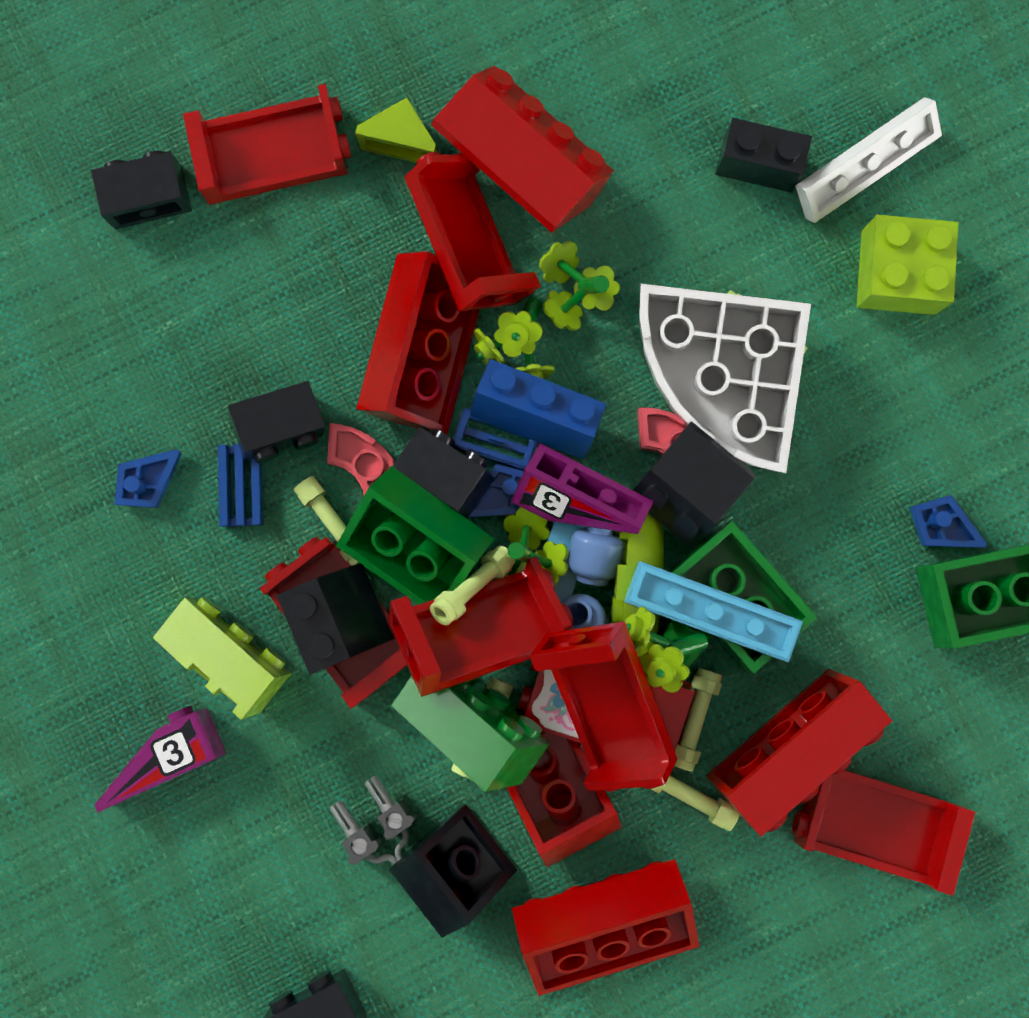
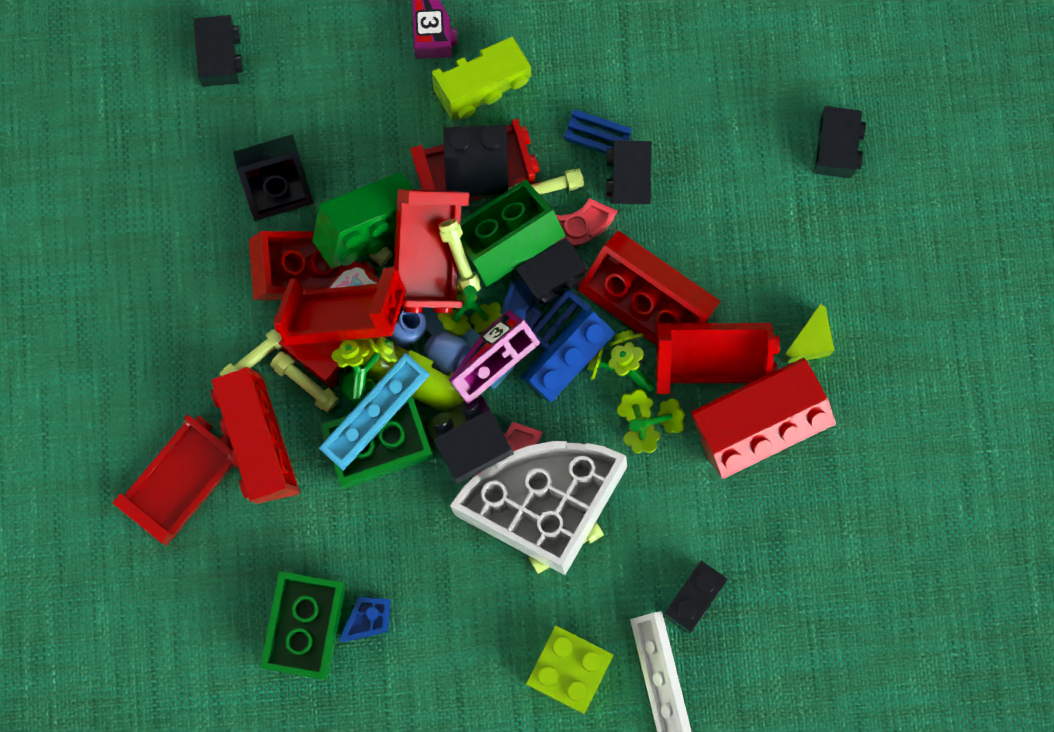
camera: 110 degrees right, 5 degrees down
(145, 479) = (626, 71): blue piece -> none
(267, 147) = (839, 242): red panel -> none
(365, 841) = (317, 126): piece -> none
(606, 926) = (191, 263): red slope -> none

